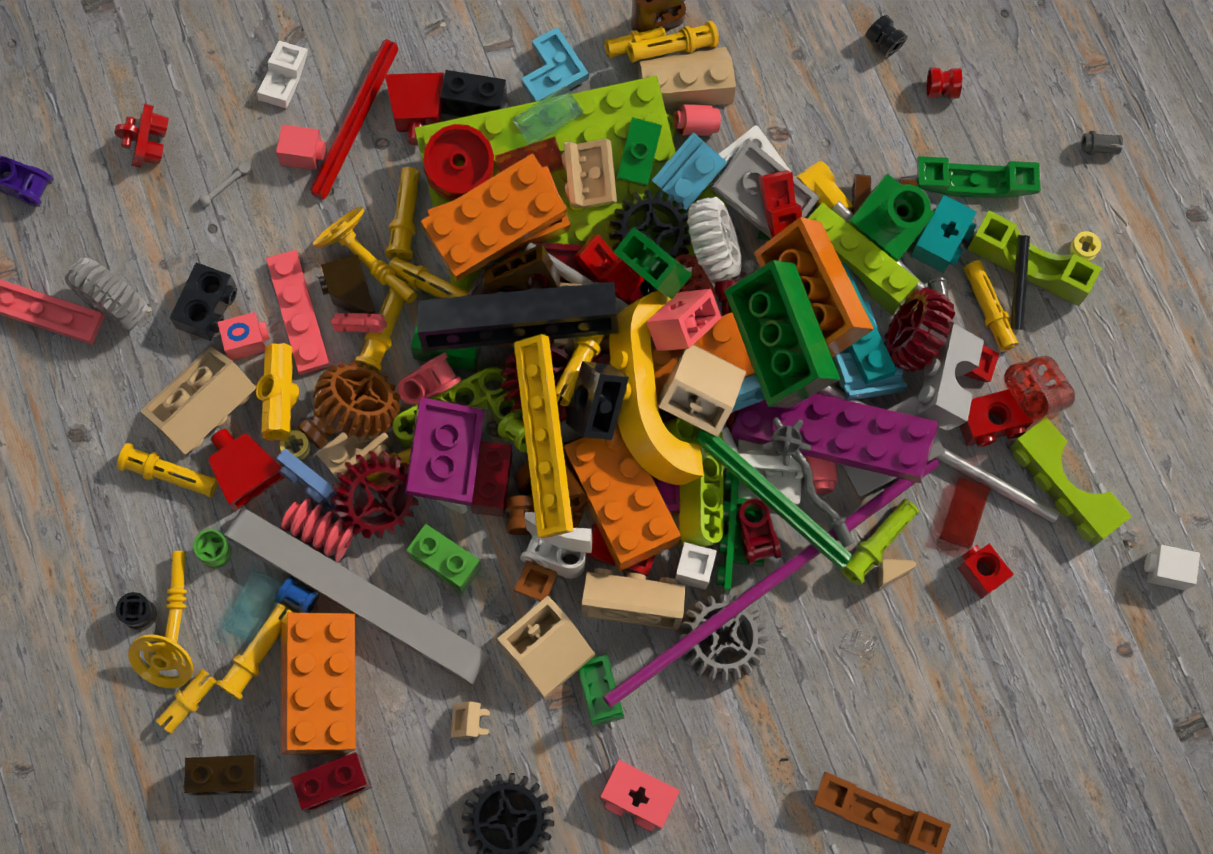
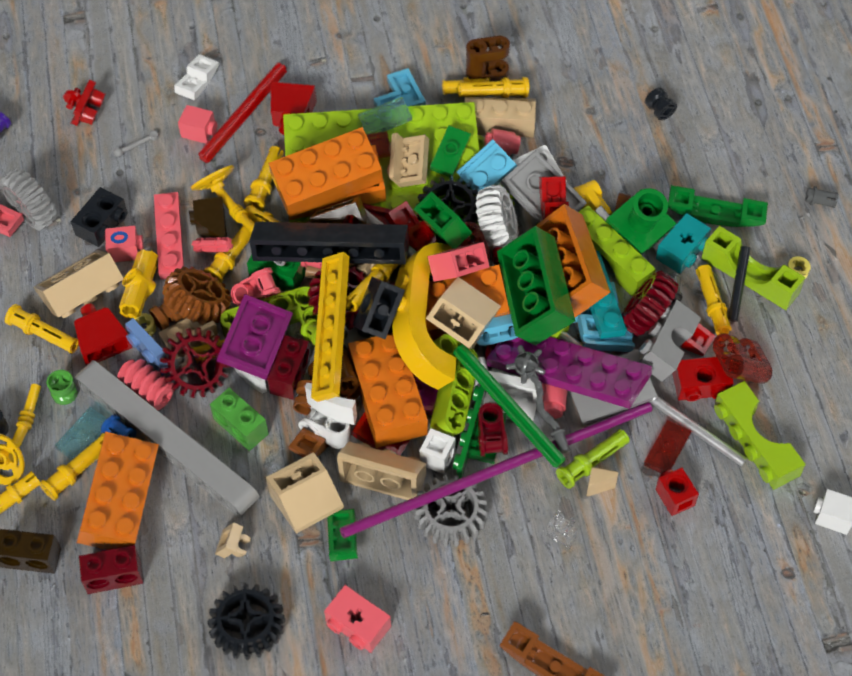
camera: 15 degrees right, 15 degrees down
(446, 149) = (306, 128): red wheel -> none
(471, 94) = (329, 98): black brick -> none
(945, 83) = (701, 140): red wheel -> none

